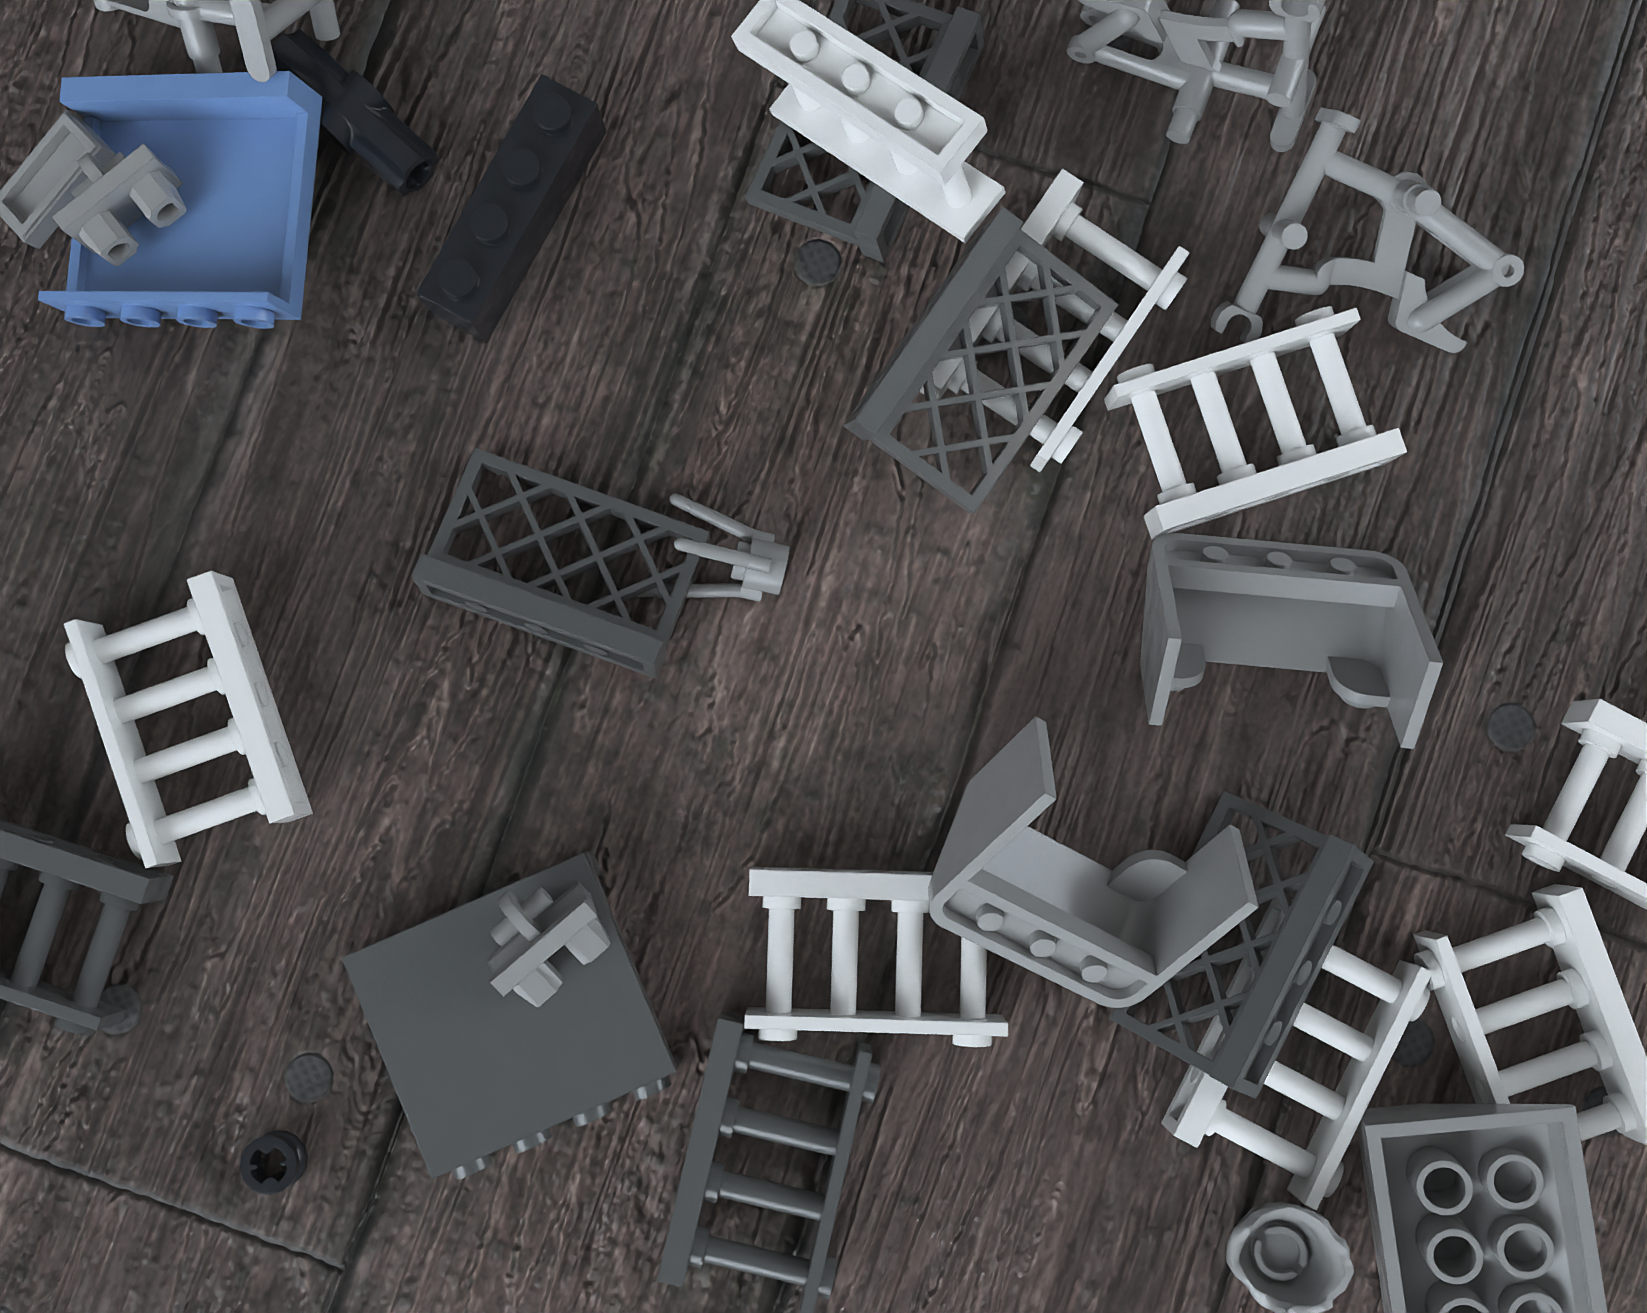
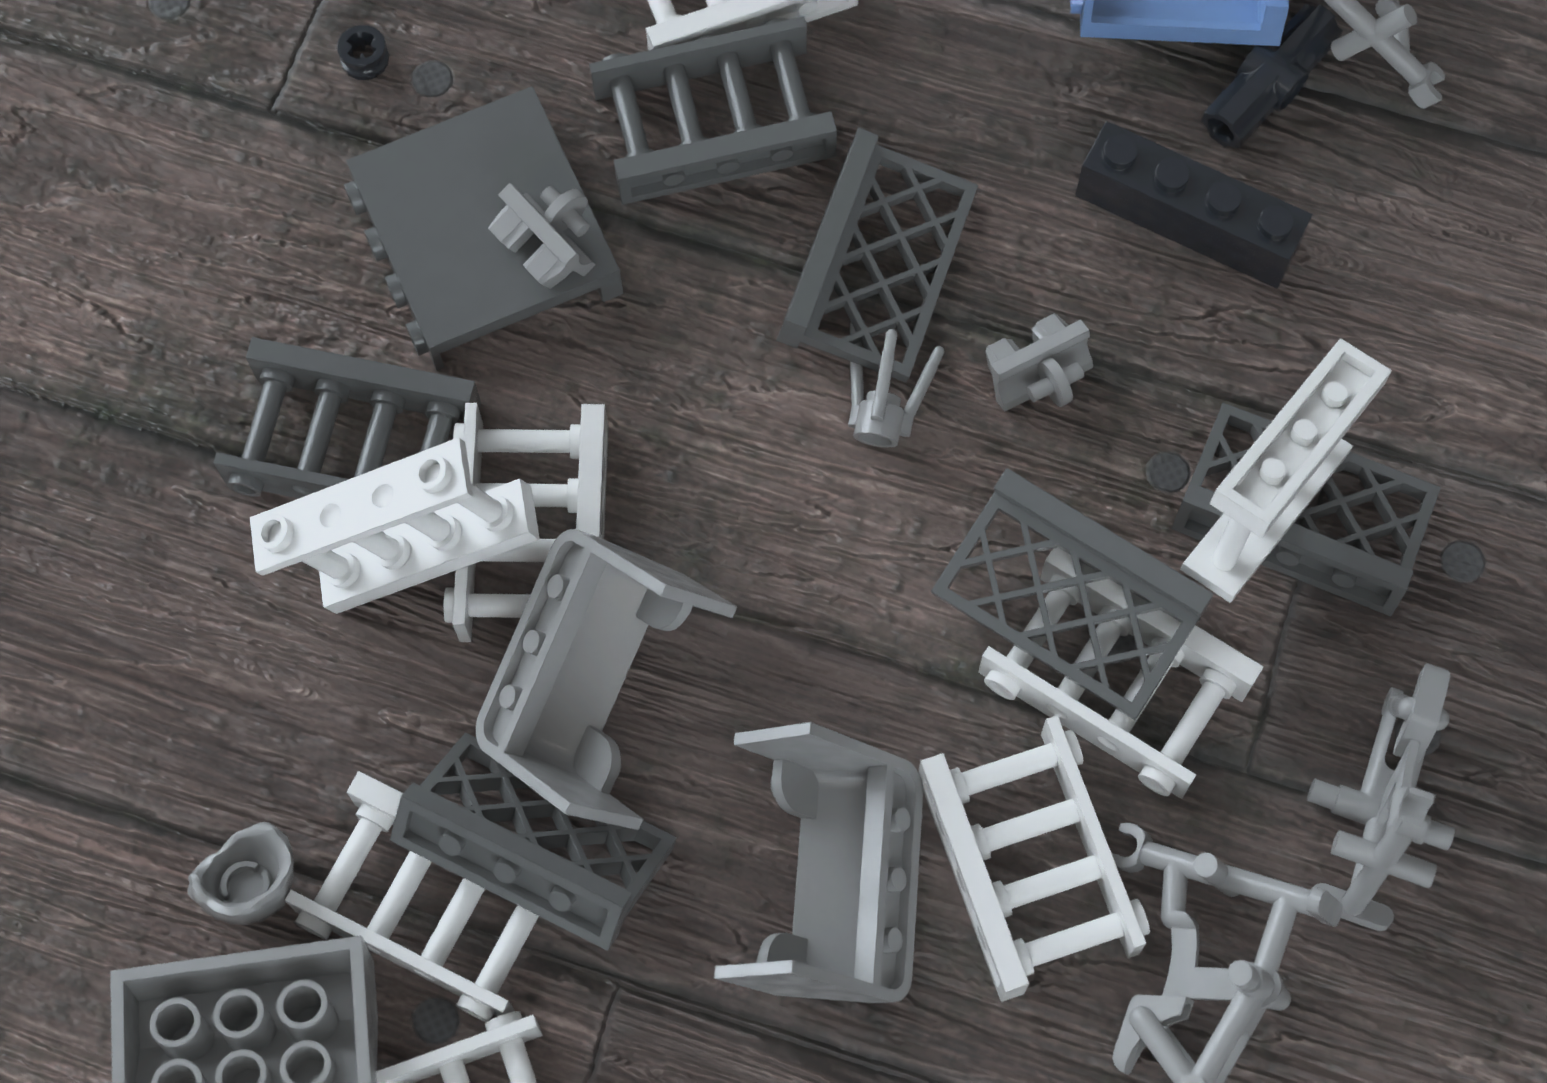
camera: 90 degrees right, 15 degrees down
(419, 703) = (724, 158): none -> dark grey fence
(709, 381) = (1042, 368): none -> light grey hips
(919, 1109) = (395, 527): none -> white fence

